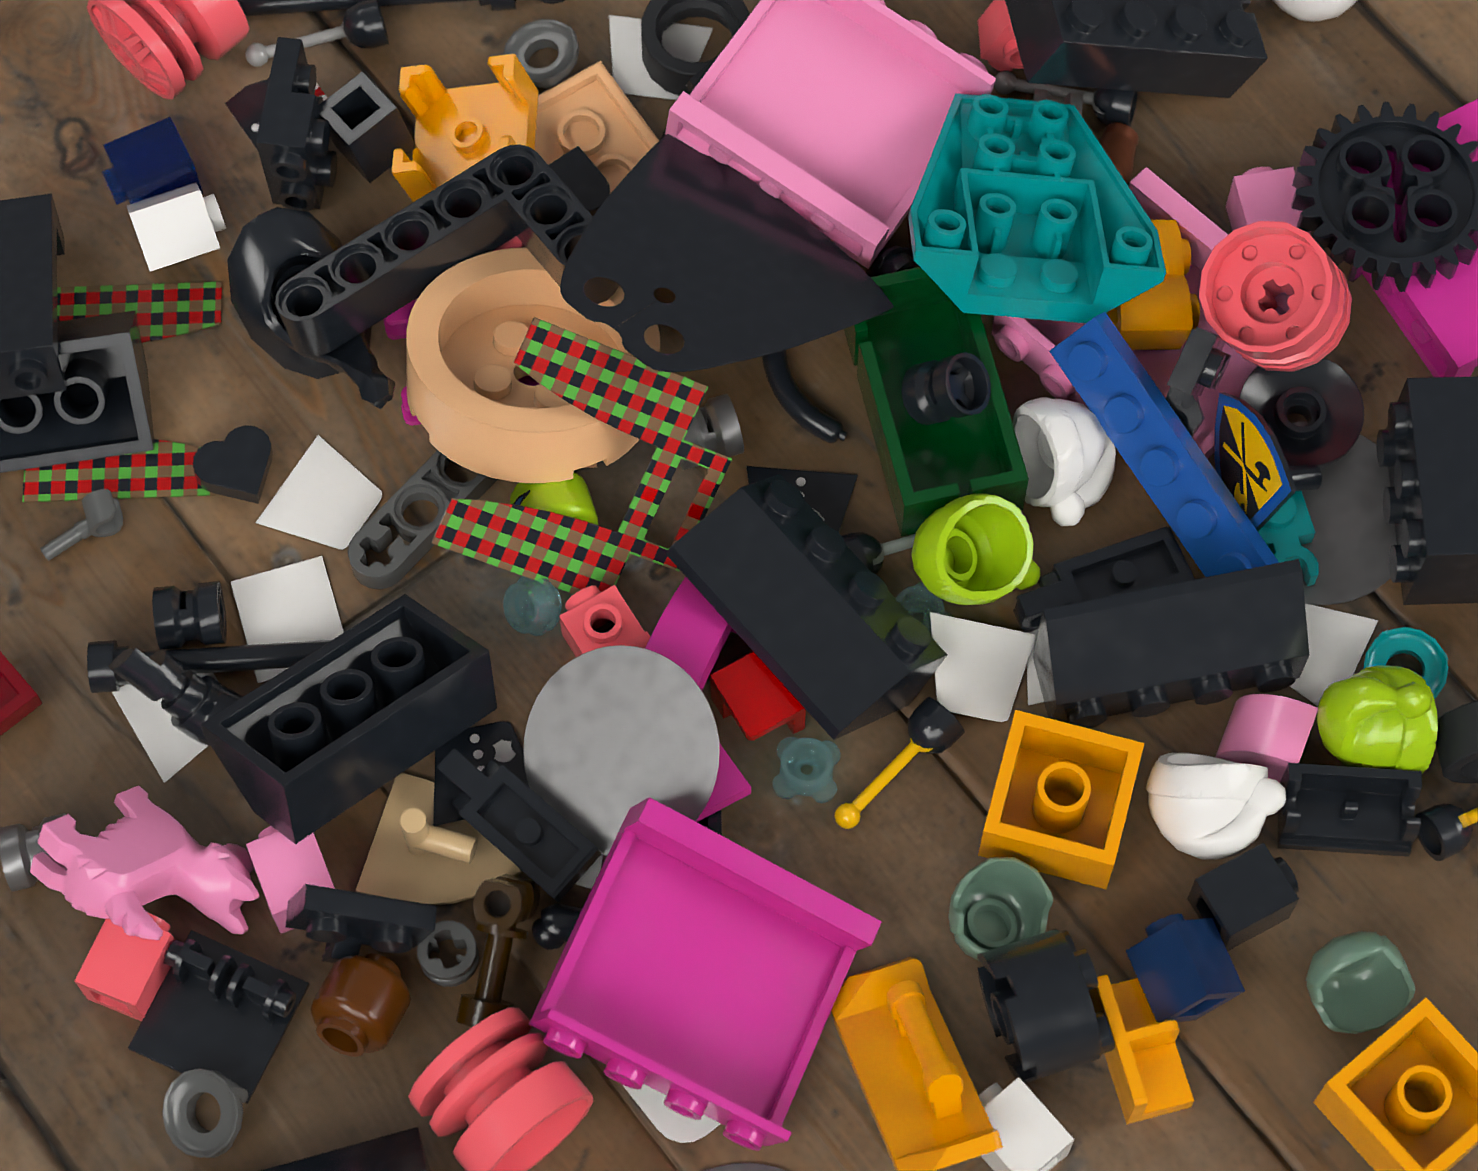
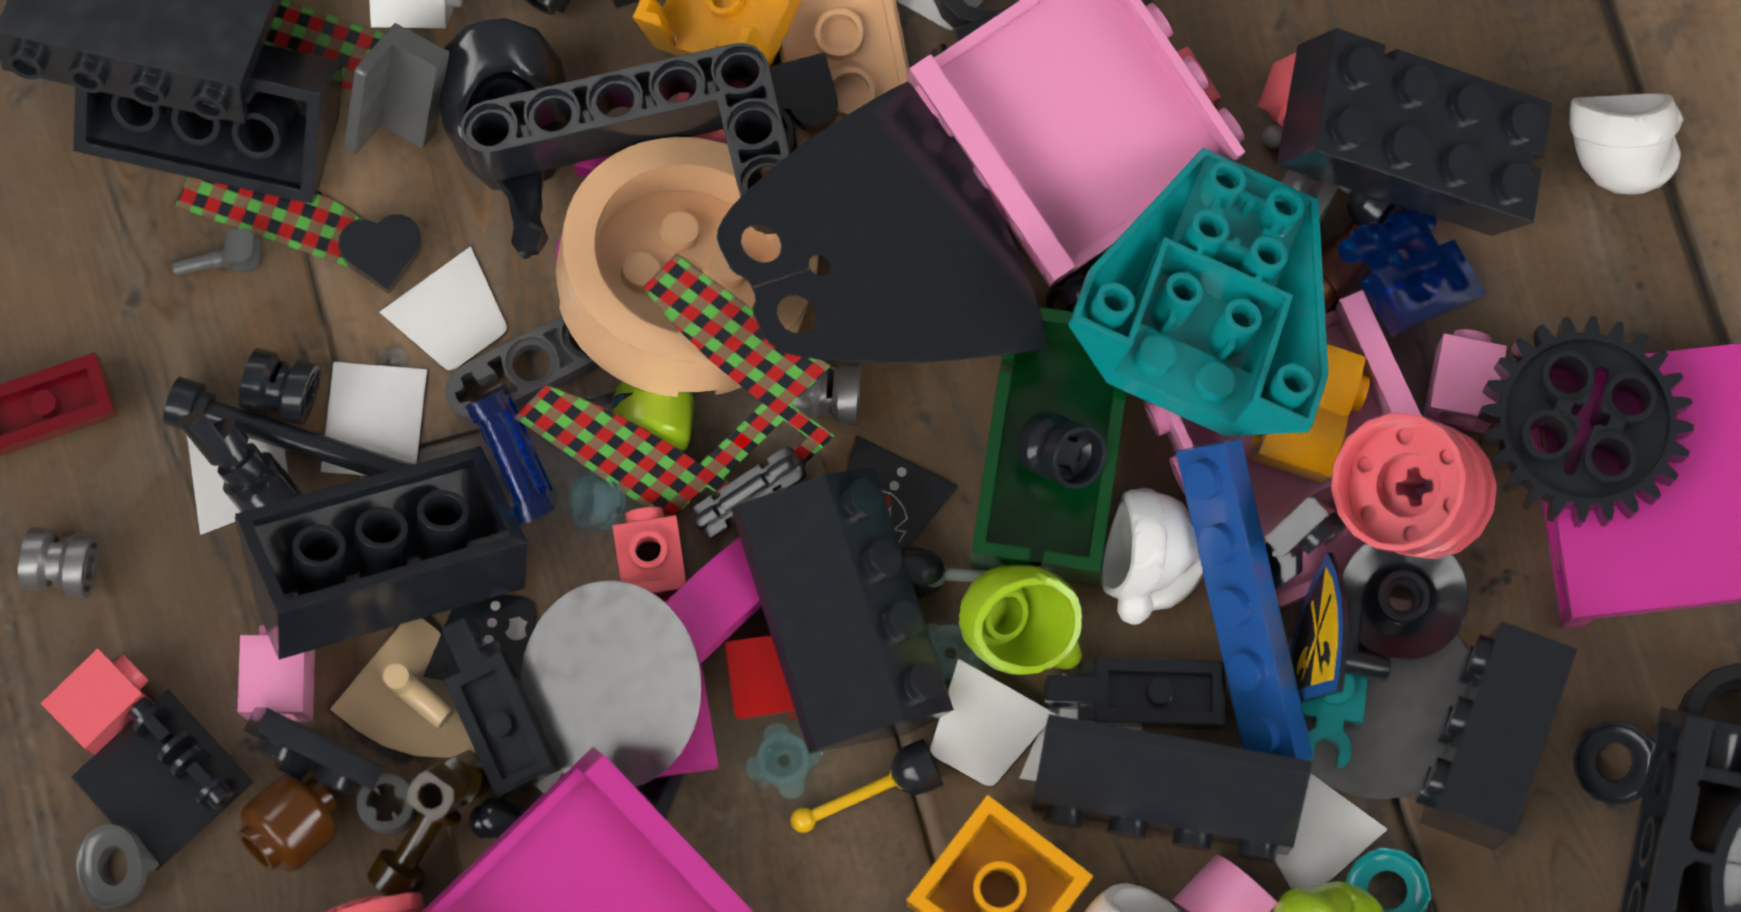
camera: 25 degrees right, 10 degrees up
(140, 862) = (138, 614): bright pink animal -> none
(200, 310) = (397, 89): none -> dark grey panel
(420, 565) = (514, 453): none -> clear blue plate
(649, 576) = (784, 470): none -> black axle
(796, 403) = (933, 405): black piece -> none
(1181, 143) = (1416, 288): none -> clear blue plate

